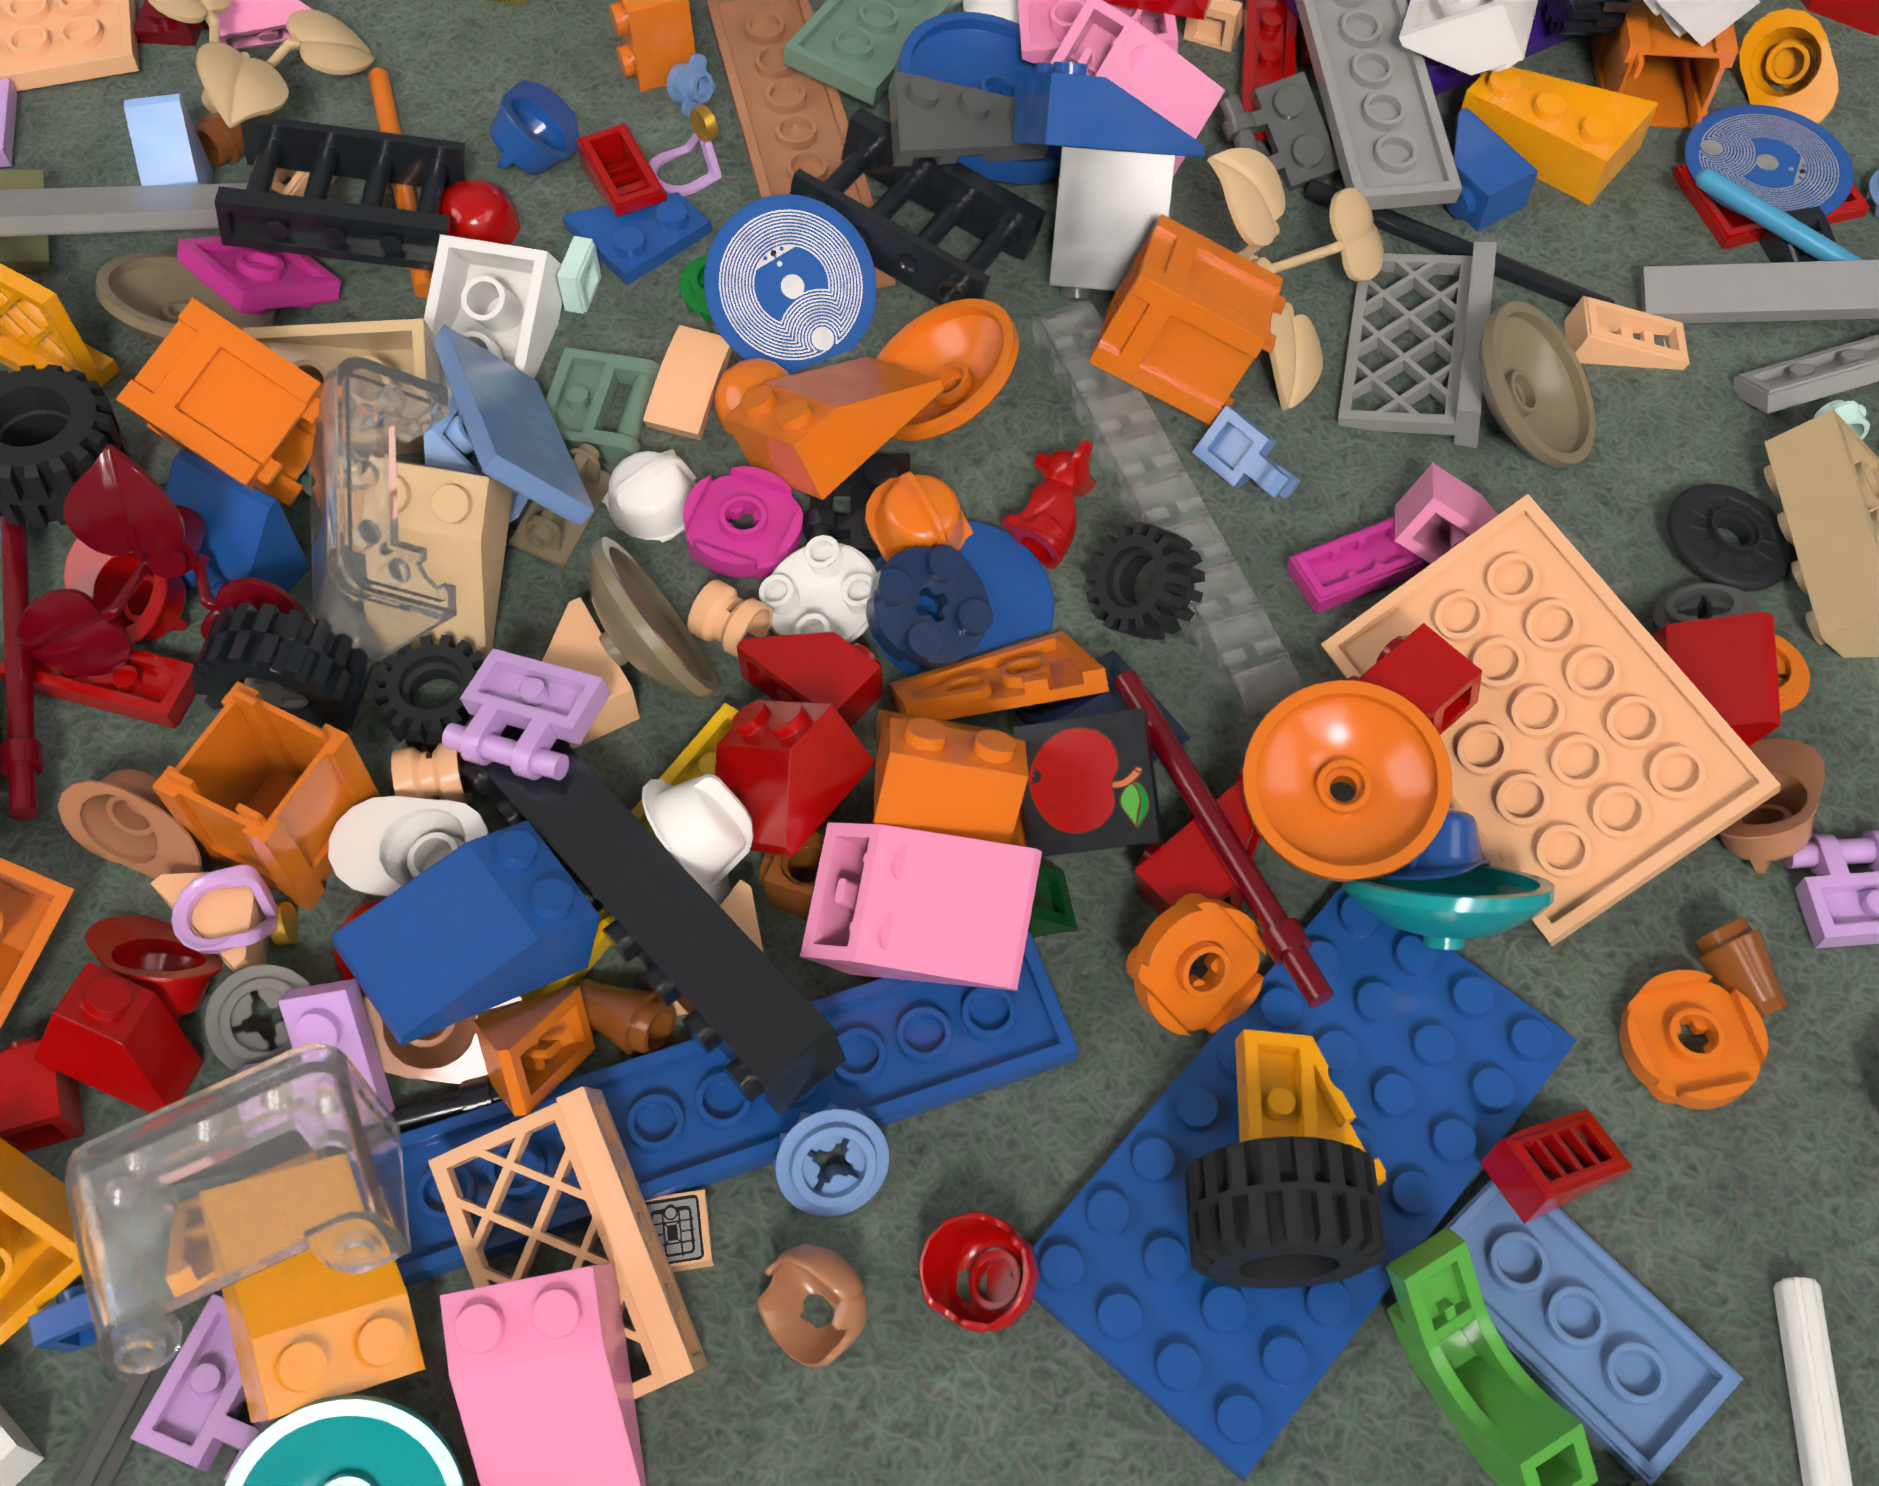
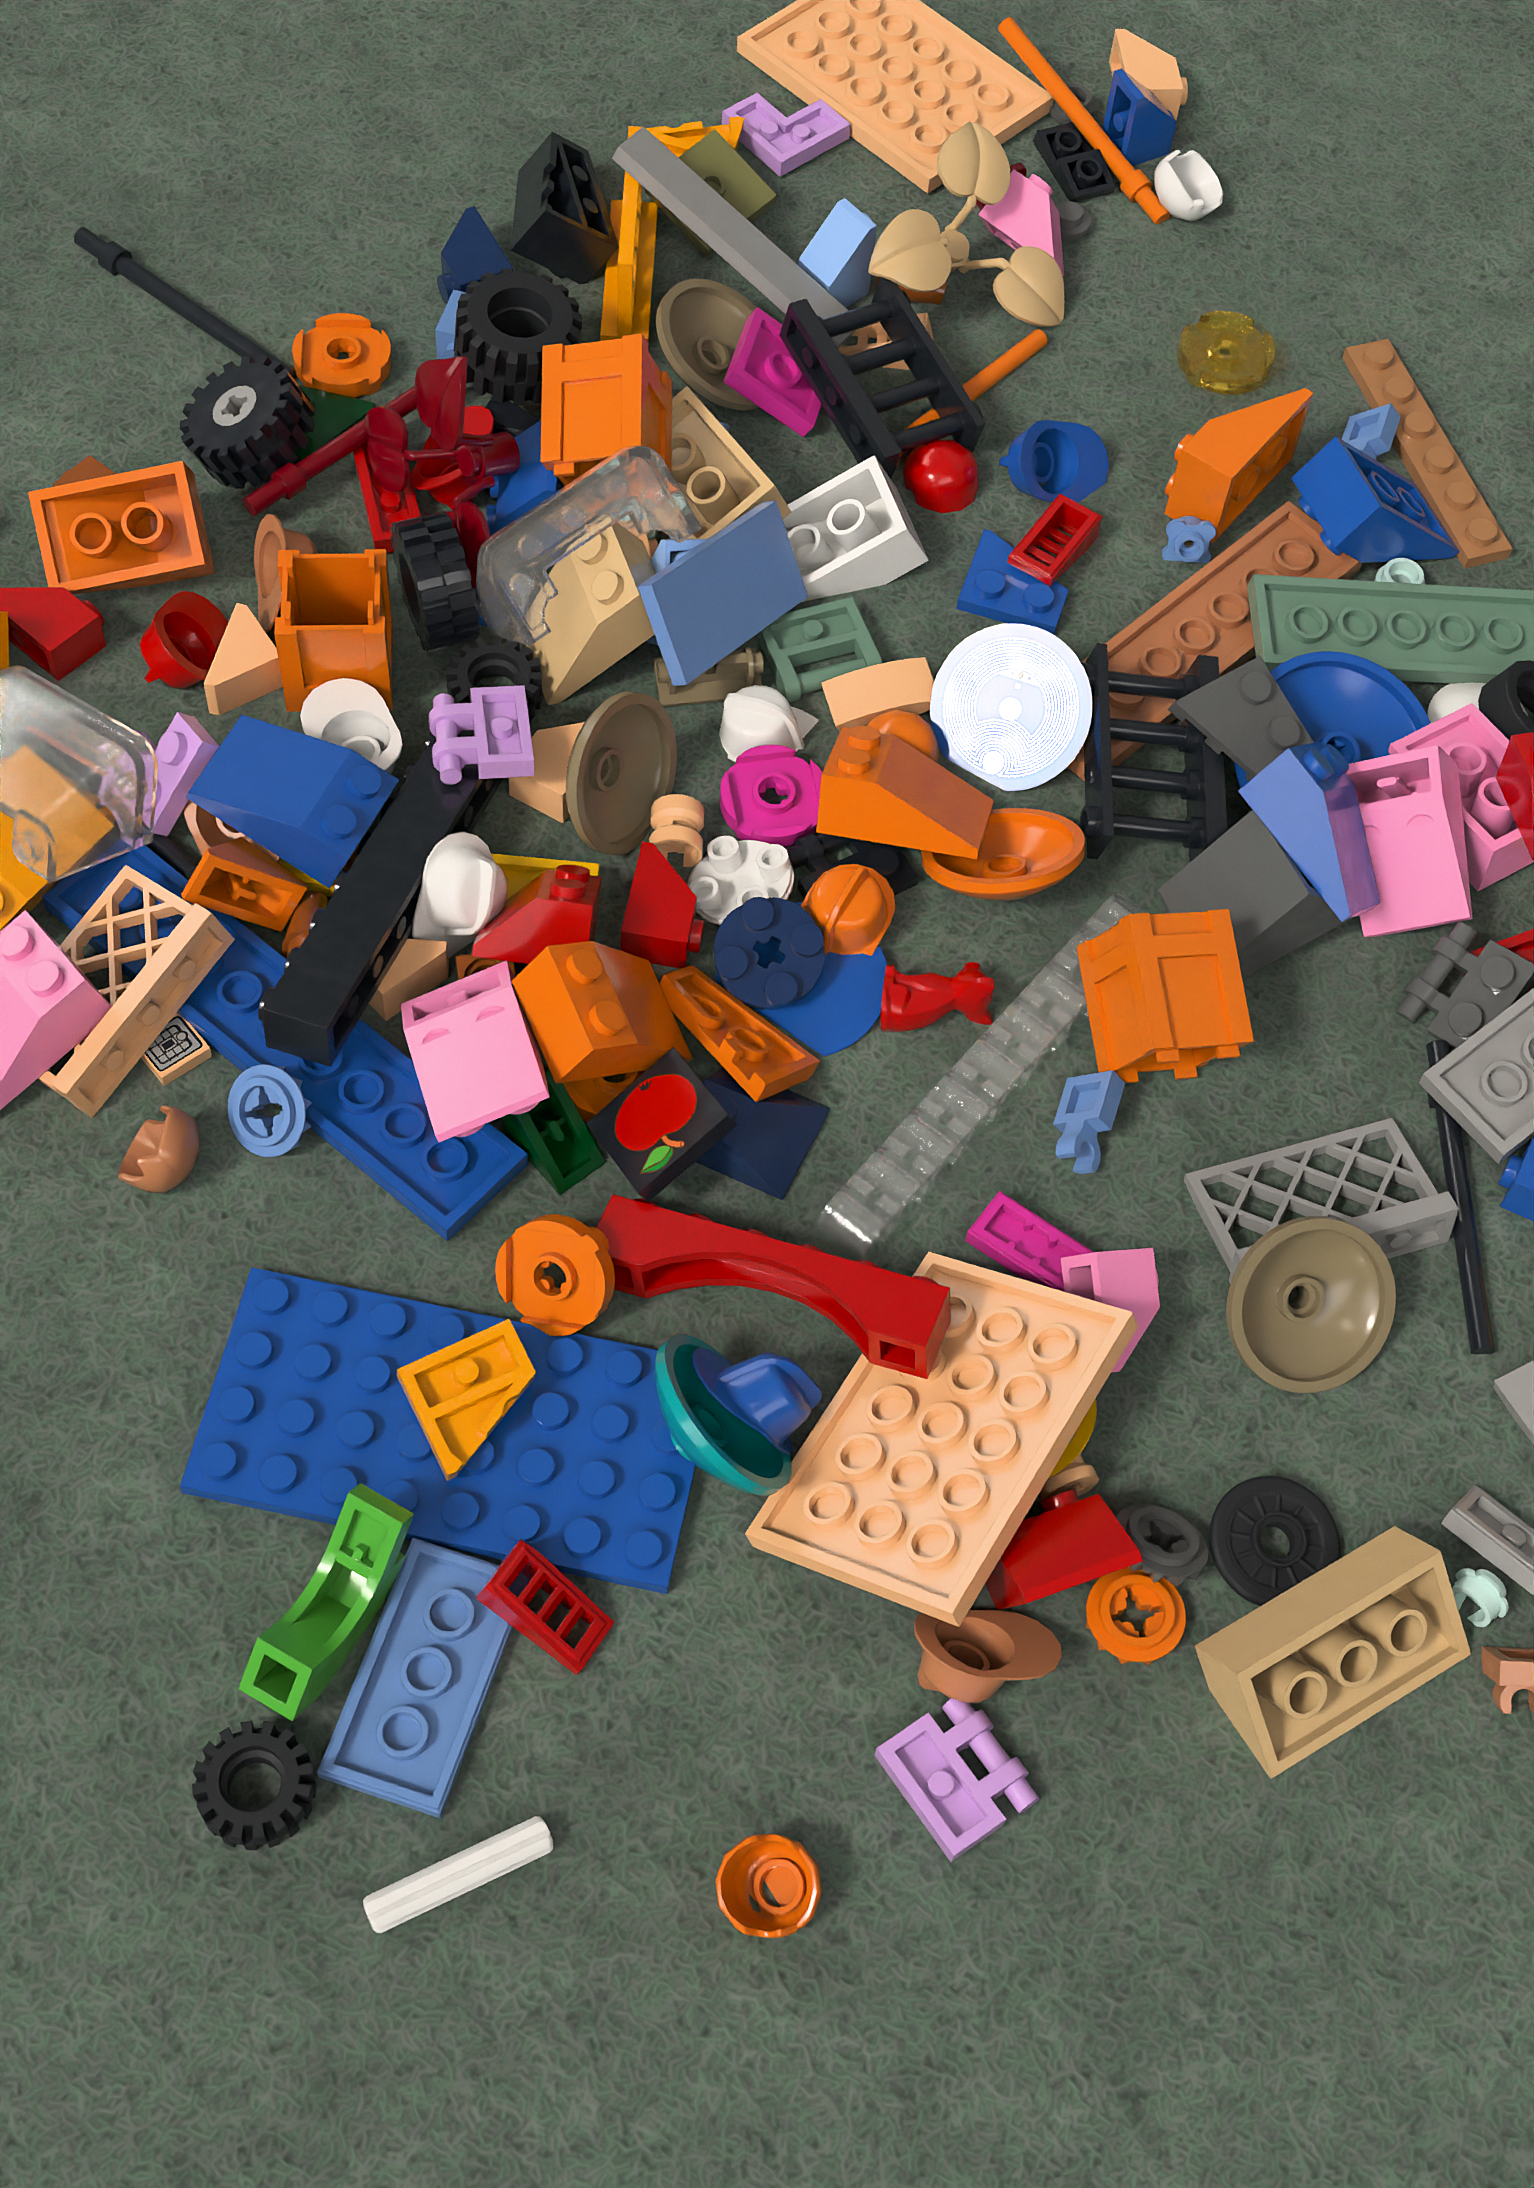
camera: 55 degrees right, 0 degrees up
(119, 1041) = (115, 653): red slope -> none
(232, 1004) = (185, 699): gear -> none
(280, 921) = (261, 697): lavender piece -> none
(426, 777) = (411, 711): light nougat wheel -> none
(579, 275) = (930, 569): light aqua tile -> none
(705, 130) = (1088, 562): lavender piece -> none
(981, 1245) = (232, 1220): red hair -> none
(1172, 584) = (890, 1089): black tyre -> none
(1255, 204) = (1289, 968): tan plant -> none
(1282, 935) = (601, 1309): dark red bar -> none
(1283, 1213) = (359, 1392): black tyre -> none
(1352, 737) = (735, 1261): orange dish -> none
(1591, 336) = (1428, 1367): light nougat slope -> none
(1672, 1071) = (723, 1642): orange plate -> none
(1741, 961) = (812, 1694): dark orange cone -> none

